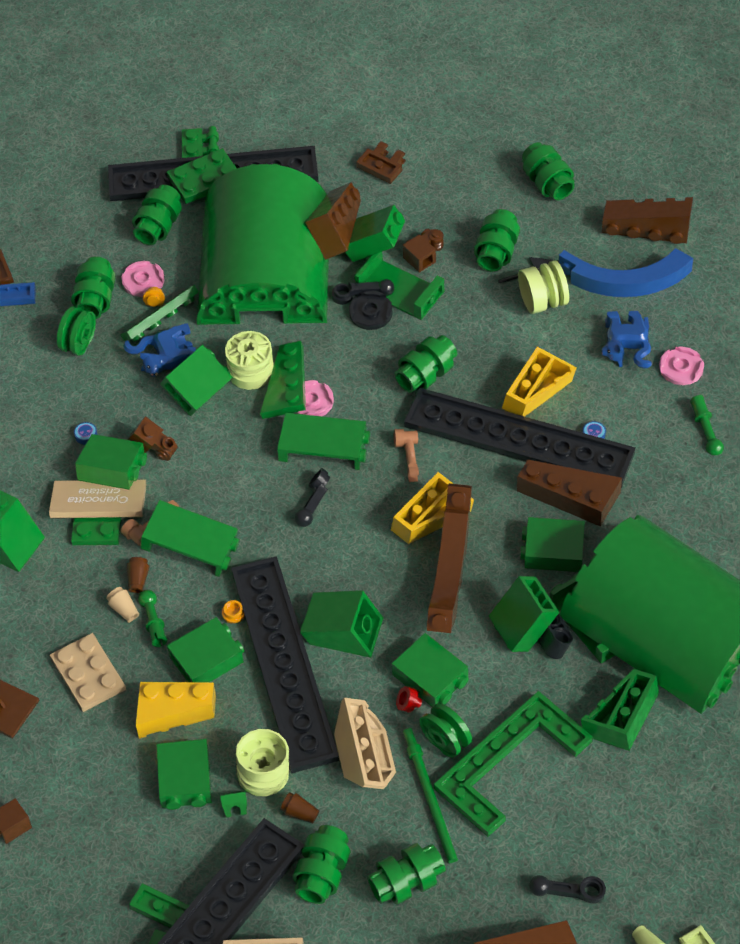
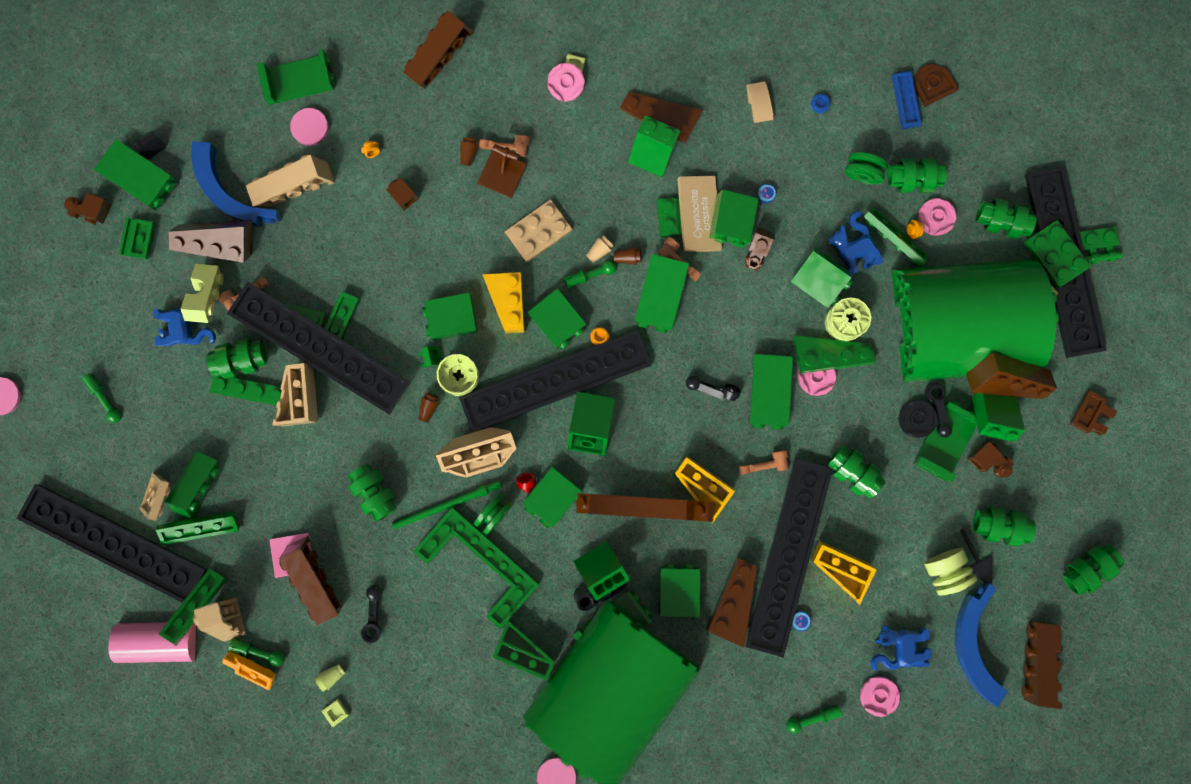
camera: 85 degrees right, 30 degrees up
(318, 871) = (366, 426): green piece -> none

